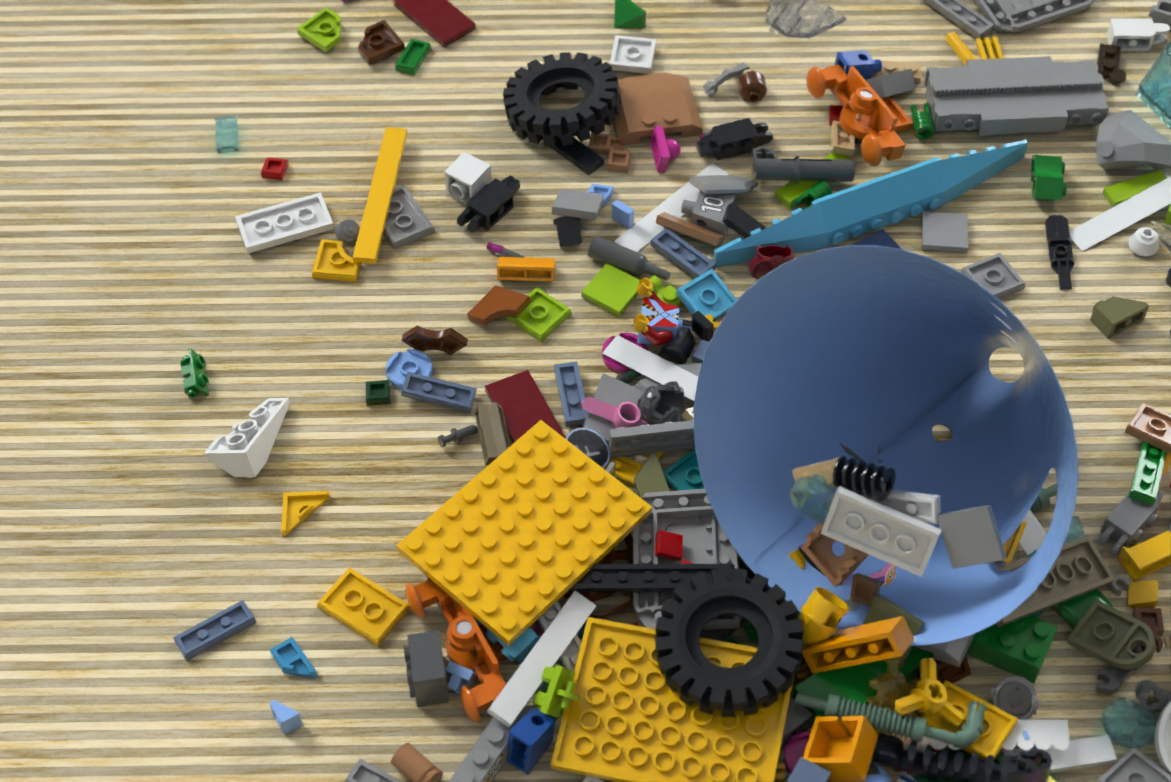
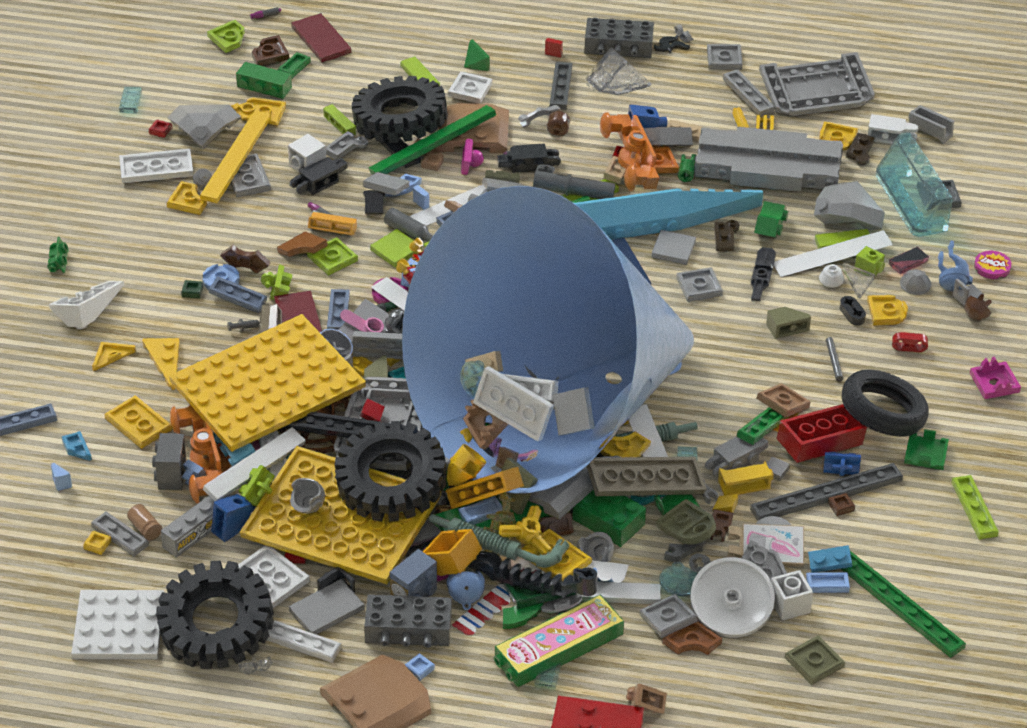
camera: 10 degrees right, 10 degrees down
(327, 152) = (203, 122): none -> light grey brick
(370, 496) = (164, 354): none -> yellow wing
(380, 118) = (274, 107): none -> yellow tile
(383, 83) = (264, 80): none -> green brick
(480, 366) = (279, 282): none -> lime hips
(491, 124) = (338, 119): none -> lime piece
(508, 155) = (345, 144): none -> light grey hinge
(562, 41) = (414, 67): none -> lime tile
(614, 136) = (433, 140): none -> green tile
(631, 701) = (307, 495): none -> light grey cap
(710, 168) = (504, 176): none -> olive axle
(738, 35) = (561, 85): none -> dark grey plate
(849, 678) = (478, 511): none -> light blue tile
(864, 478) = (509, 363): black piece -> none
(999, 206) = (724, 235): none -> dark brown hinge
(1075, 48) = (838, 132): none -> yellow tile

